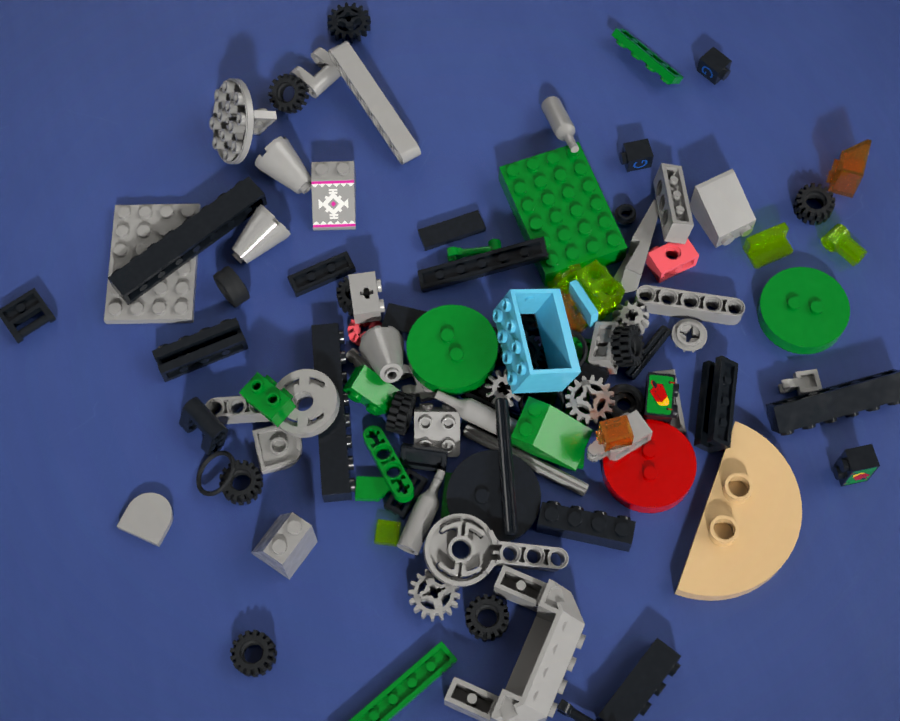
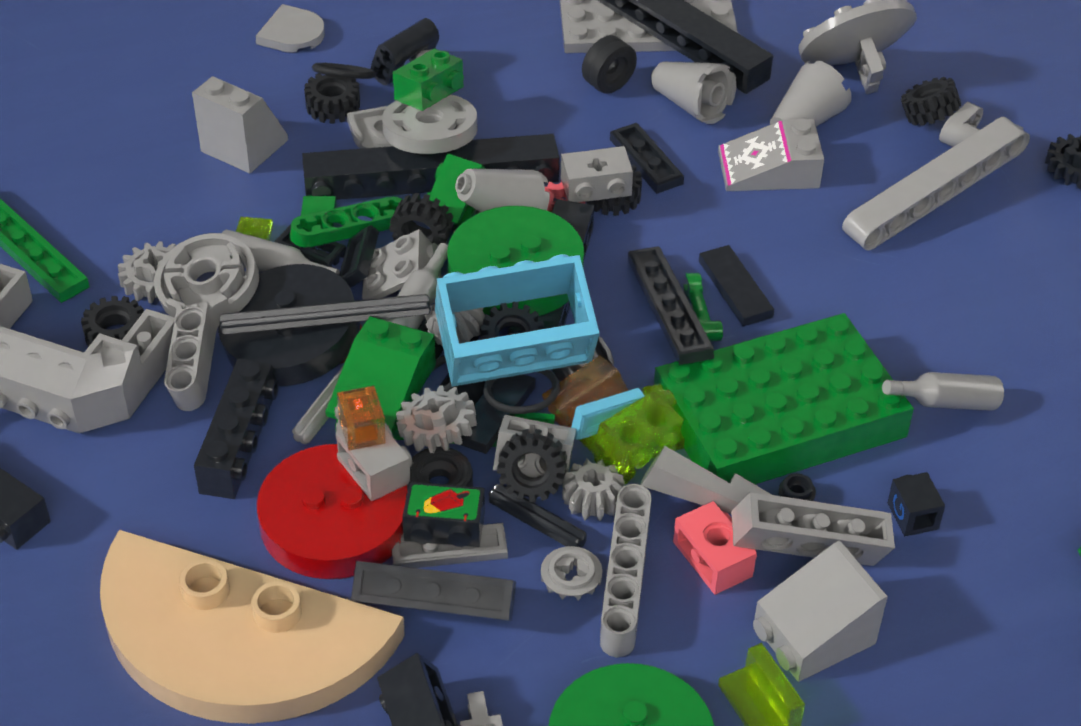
camera: 85 degrees right, 20 degrees down
(200, 349) = (520, 52): black brick -> none
(240, 646) = (104, 119): black tyre -> none

